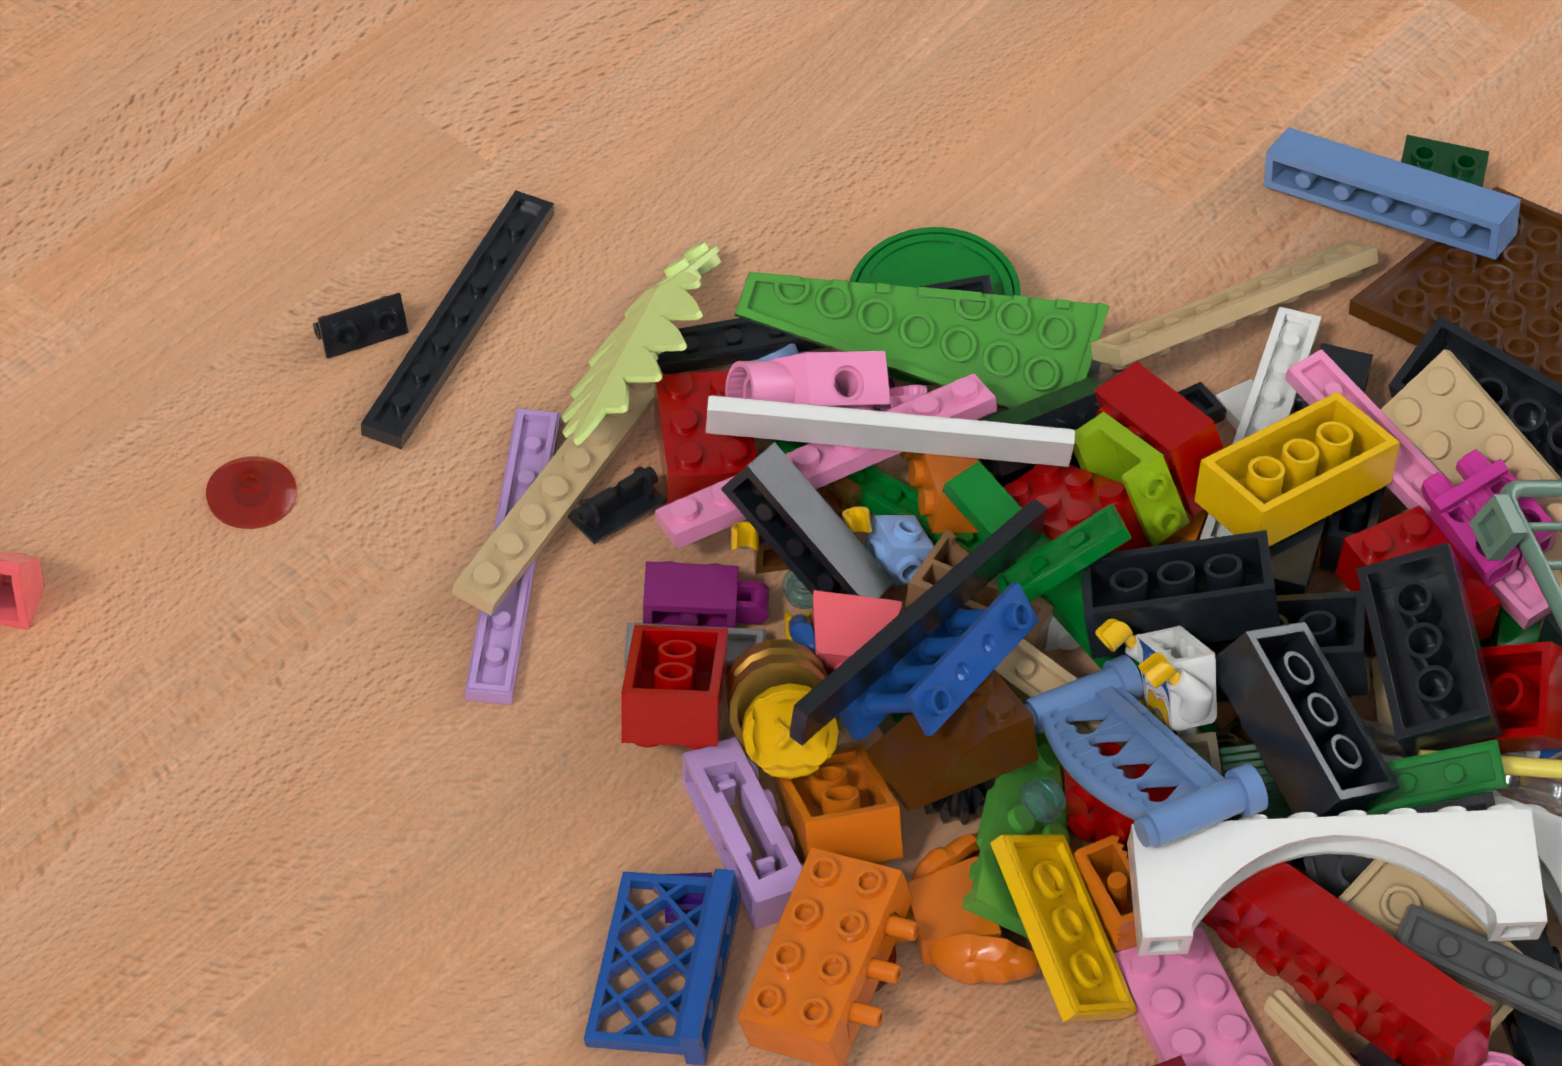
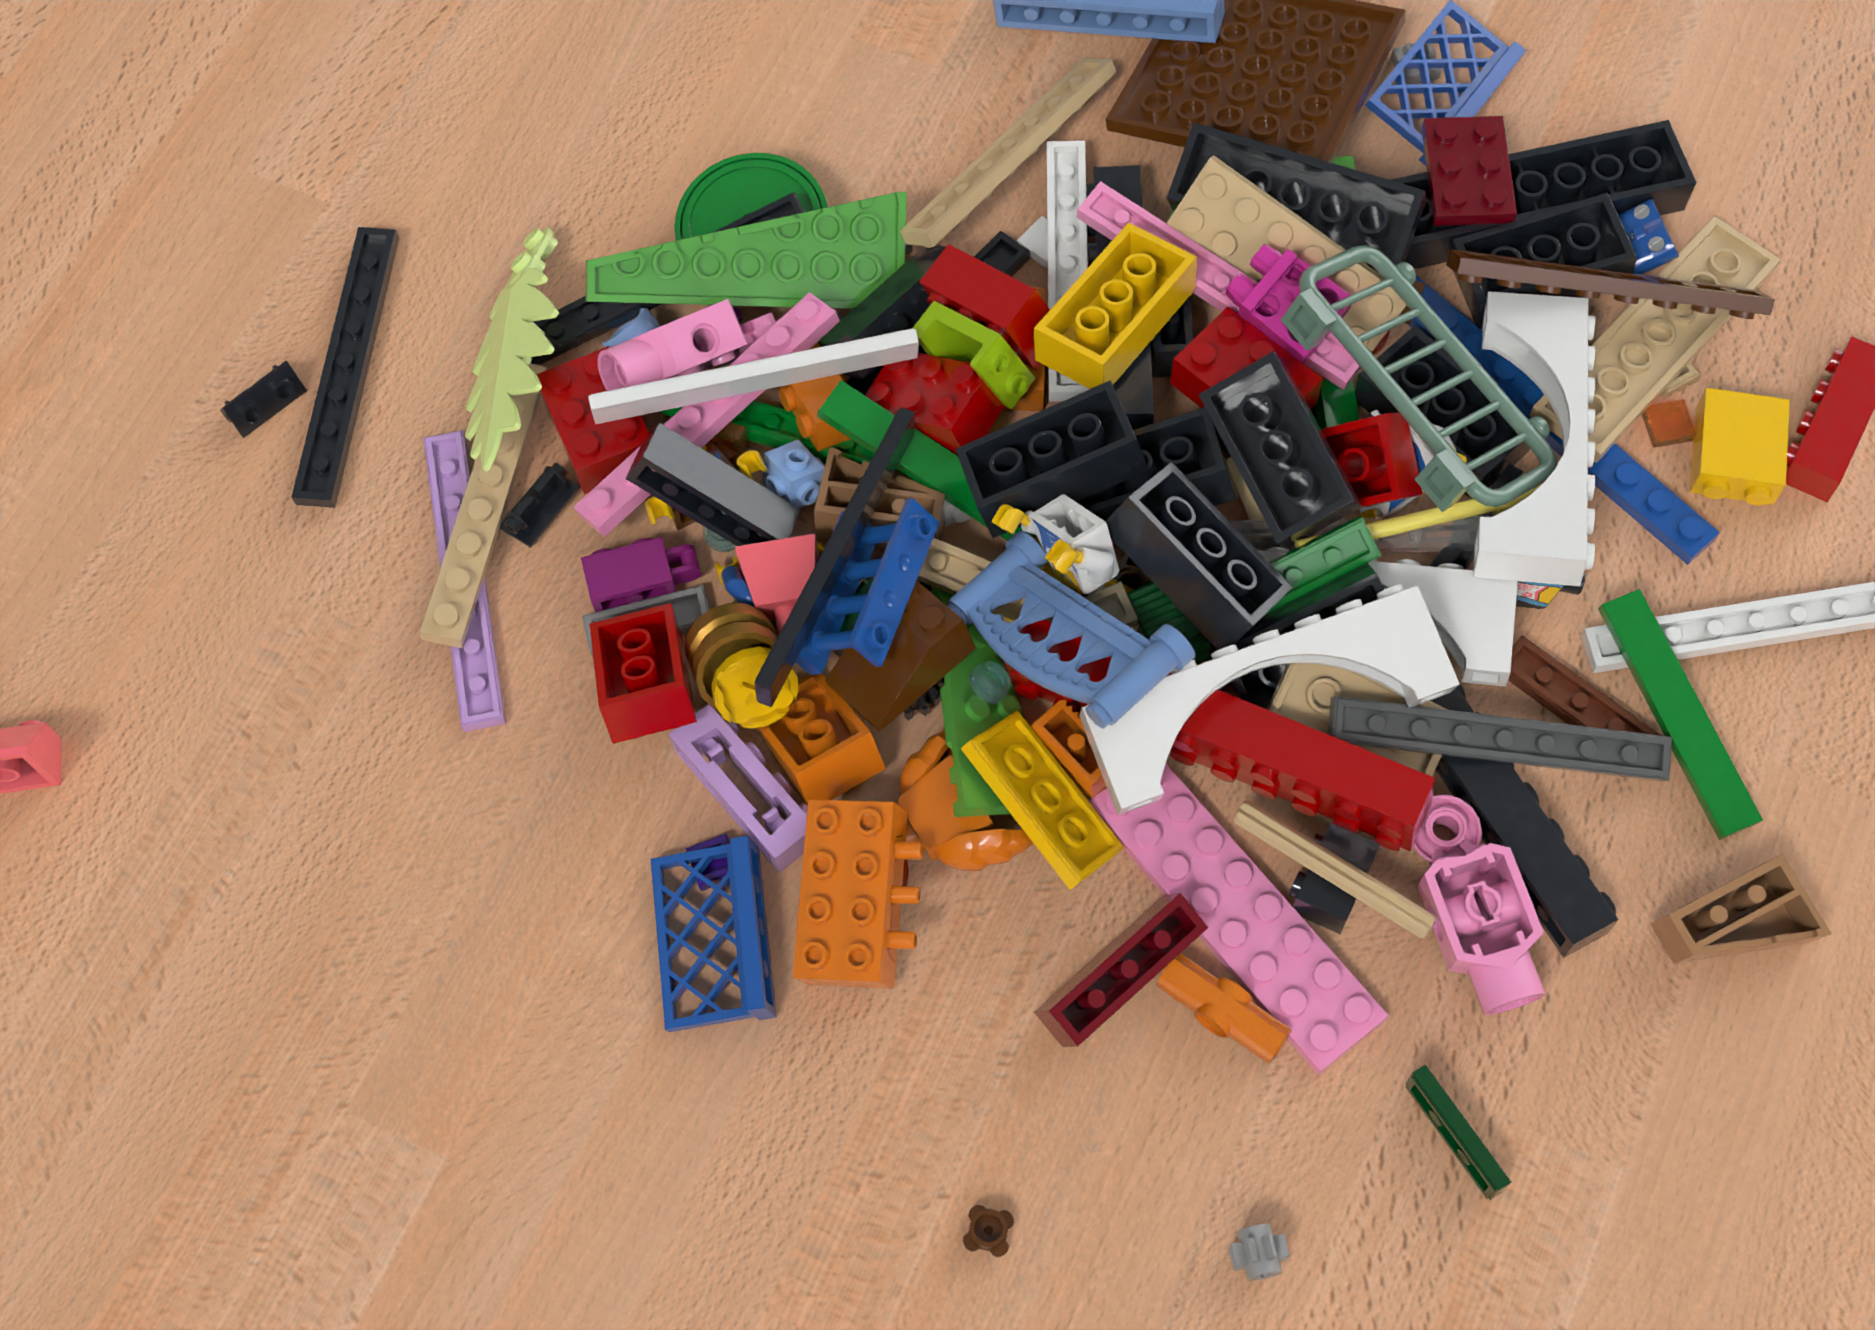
camera: 10 degrees left, 15 degrees up
(251, 492) = (225, 600): clear red dish -> none
(1067, 554) = (942, 452): green tile -> none

